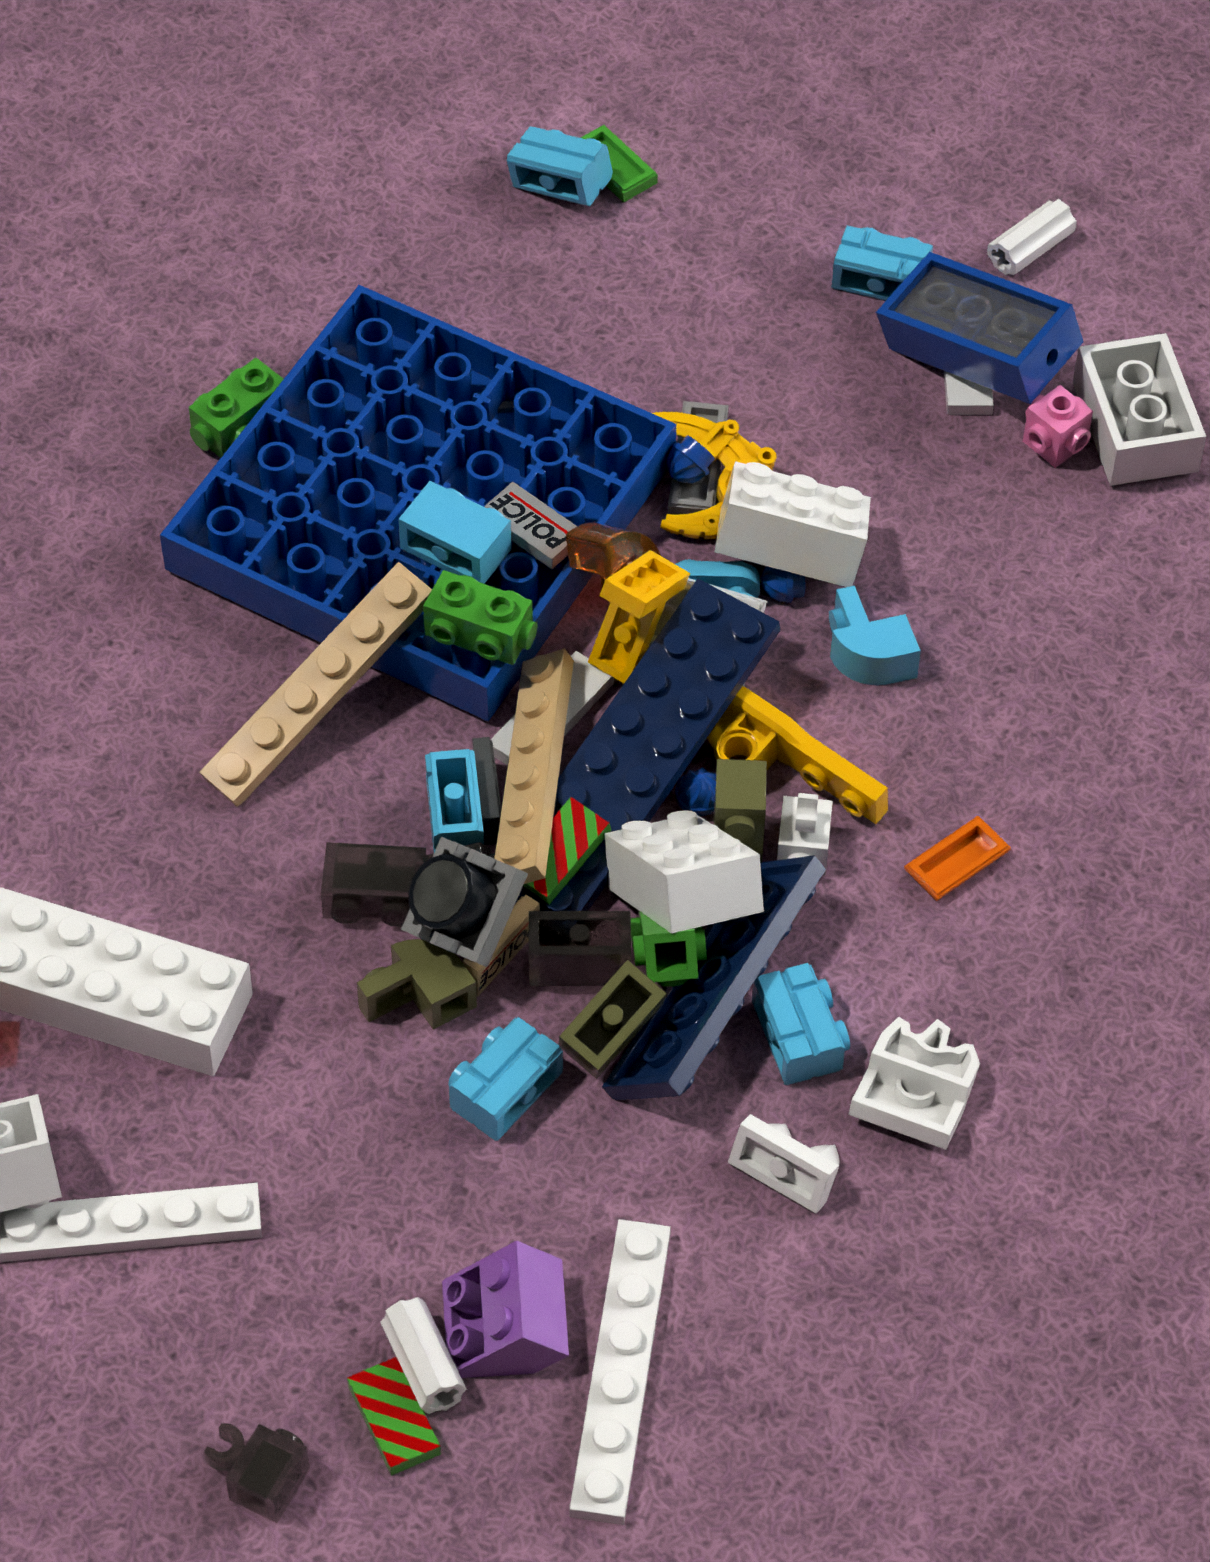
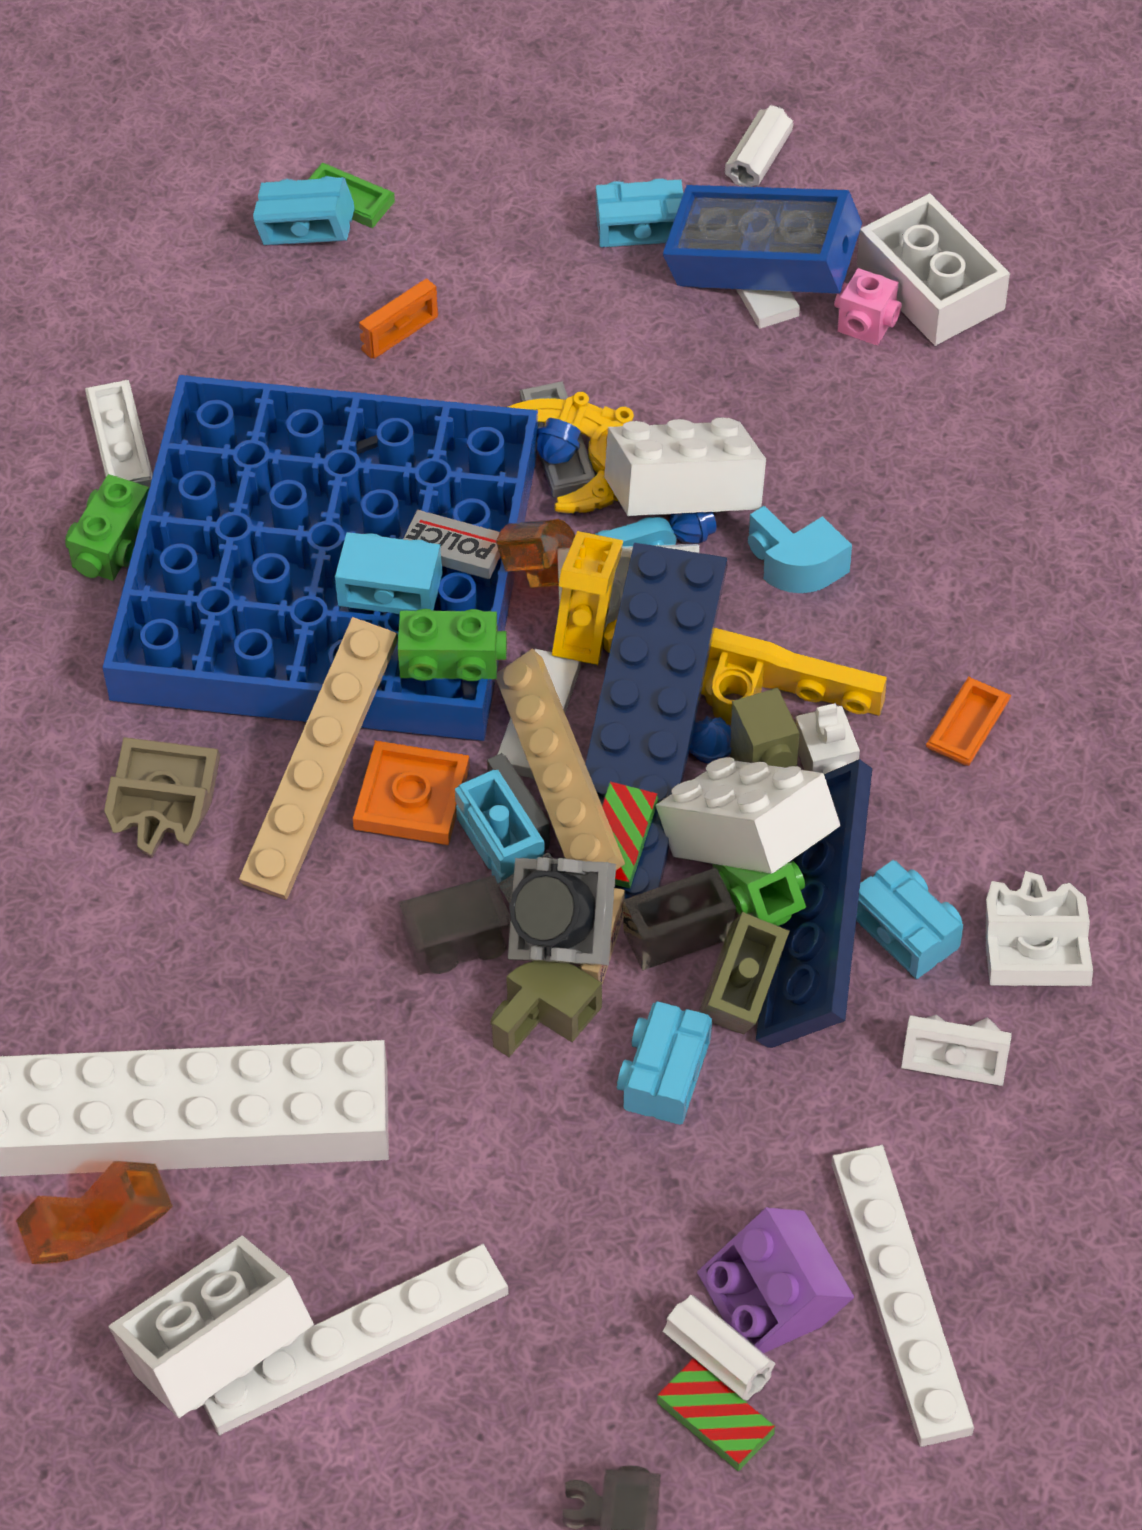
camera: 20 degrees left, 0 degrees up
(167, 668) = (161, 790): none -> dark tan plate
(292, 320) = (119, 432): none -> white tile
(390, 743) = (410, 792): none -> orange plate
(601, 296) = (399, 319): none -> orange tile

